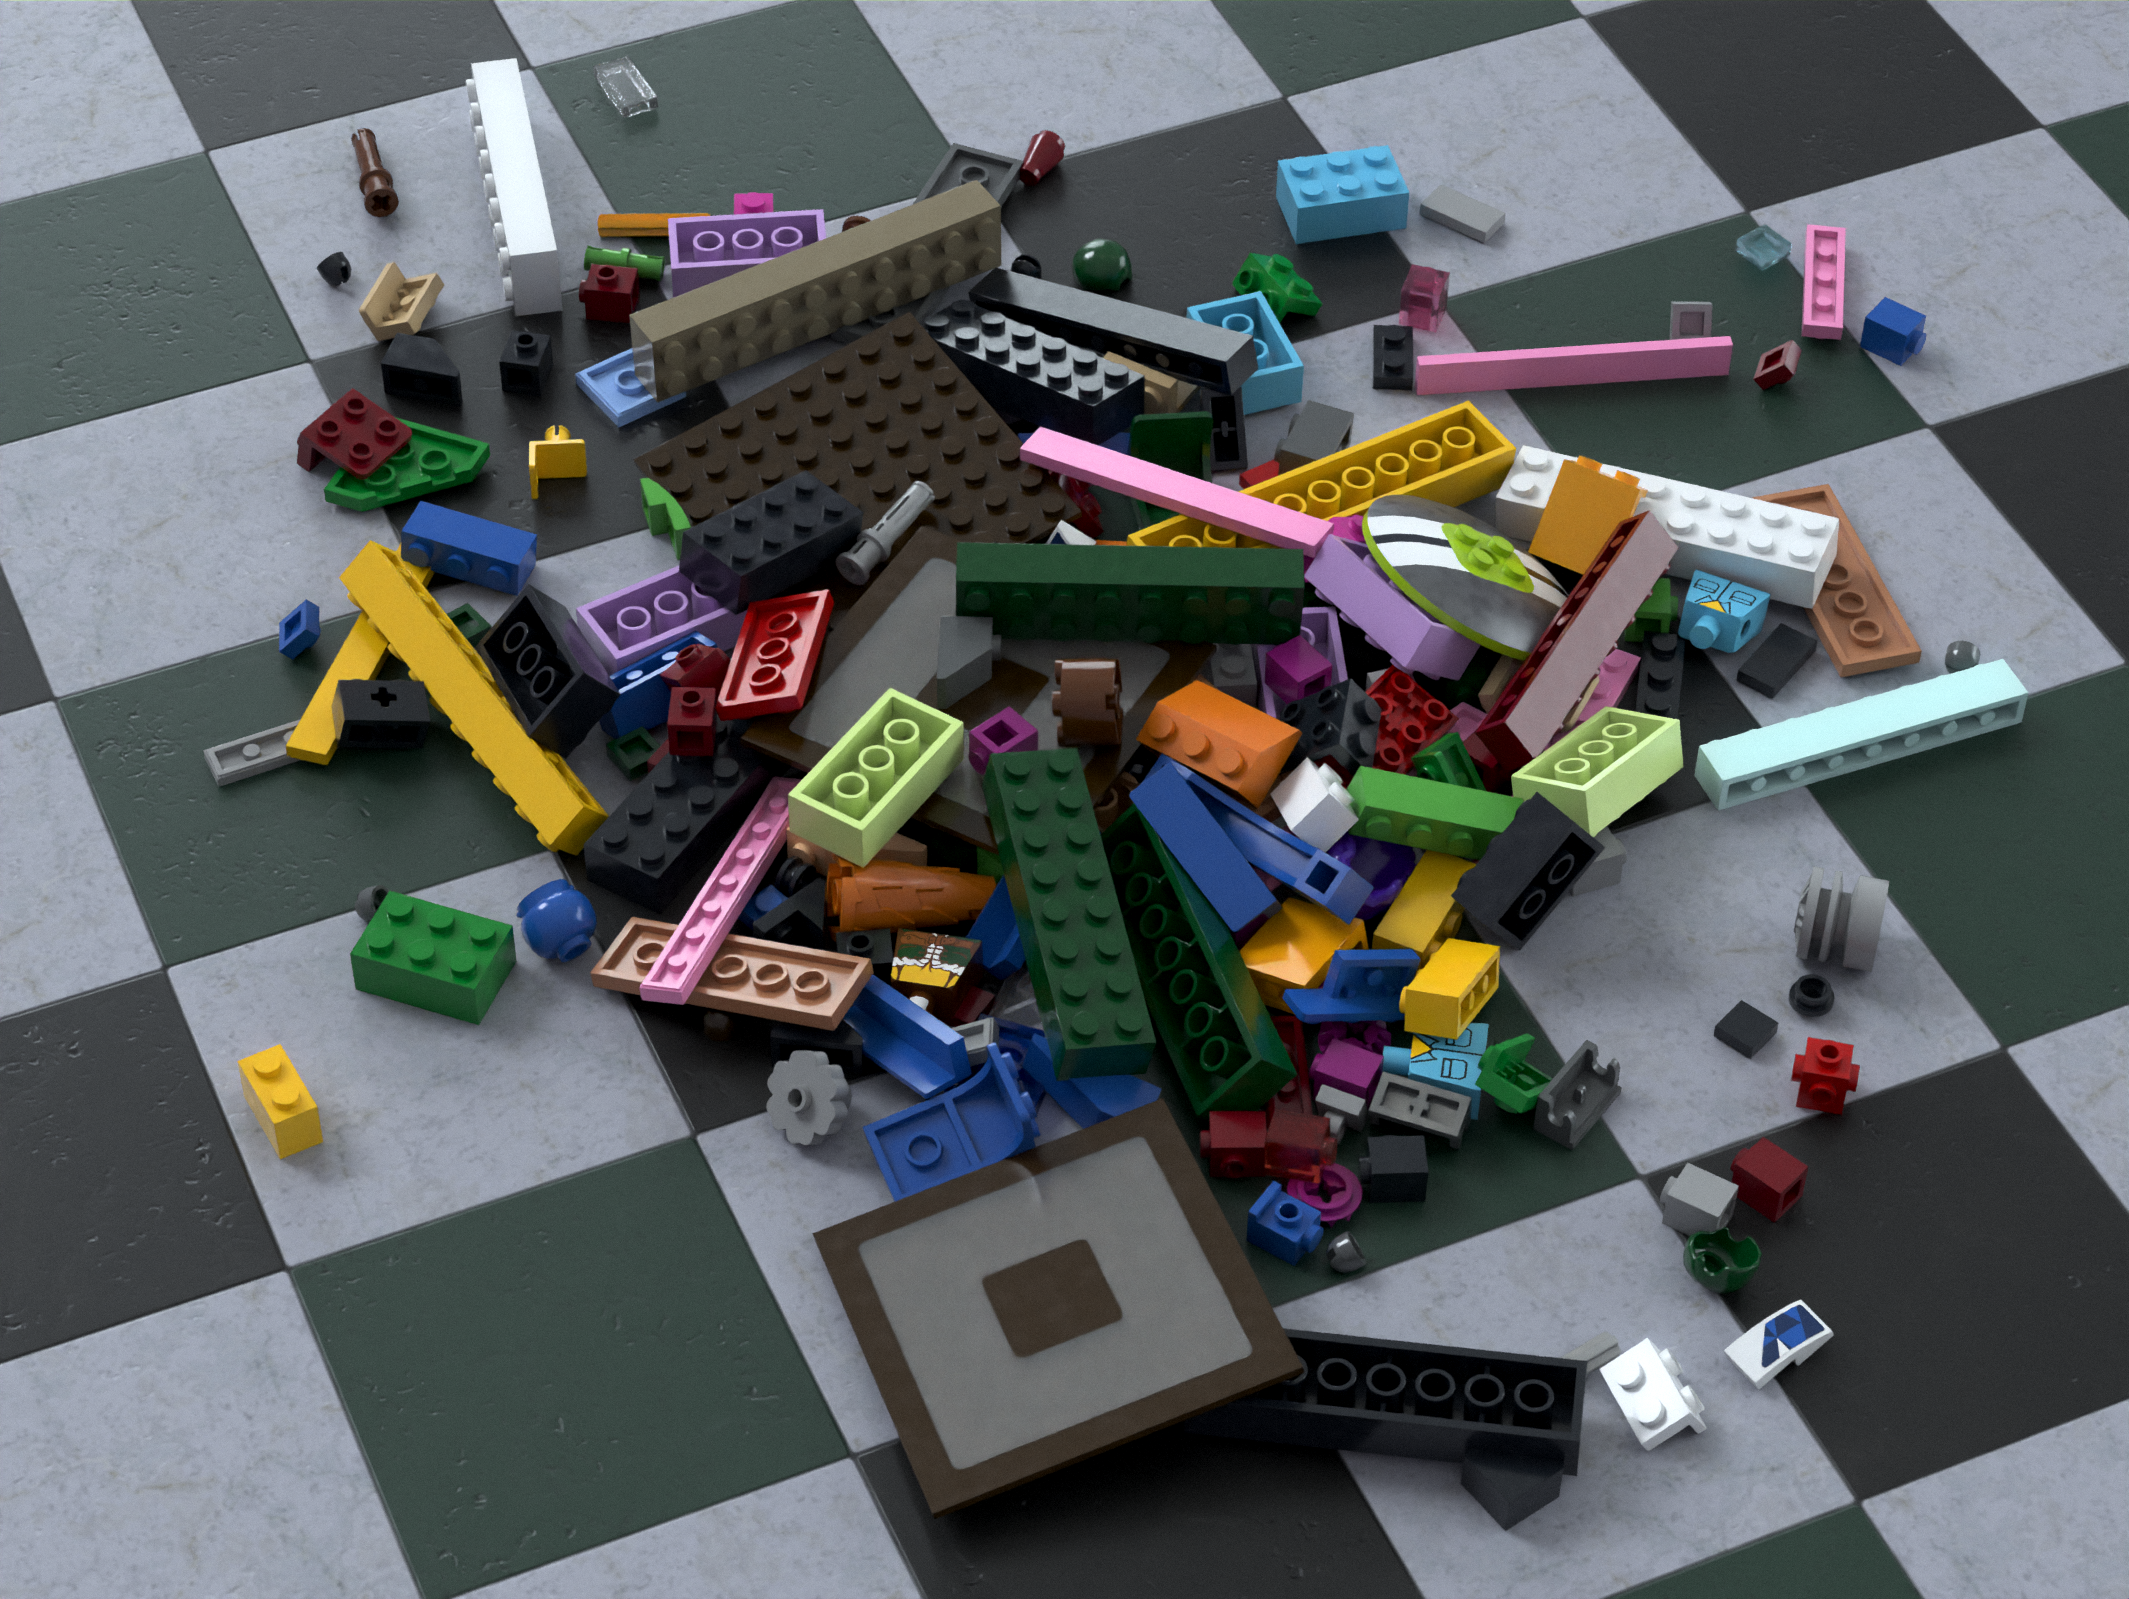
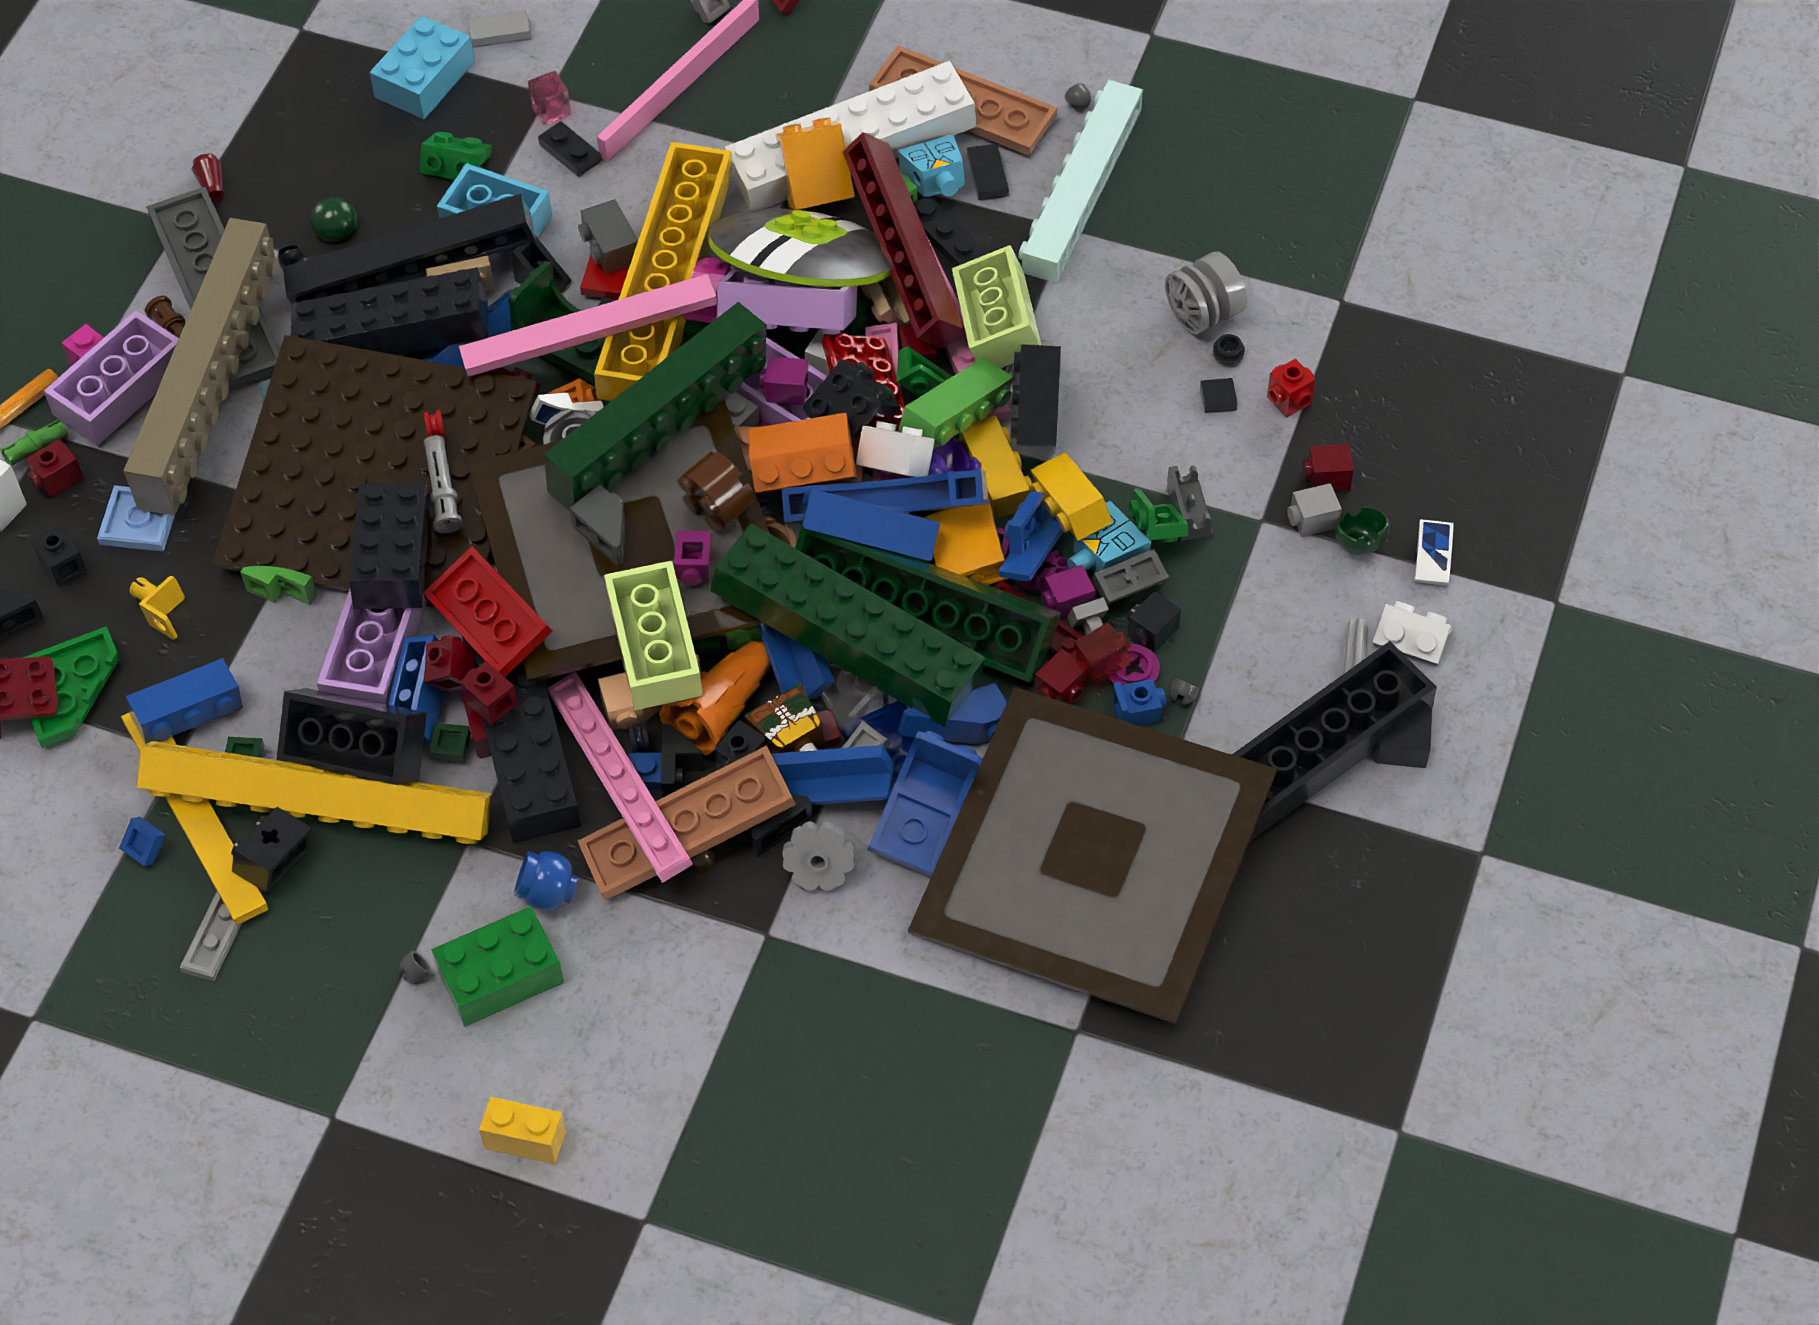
camera: 45 degrees left, 10 degrees up
(939, 475) = (434, 424): none -> red bush

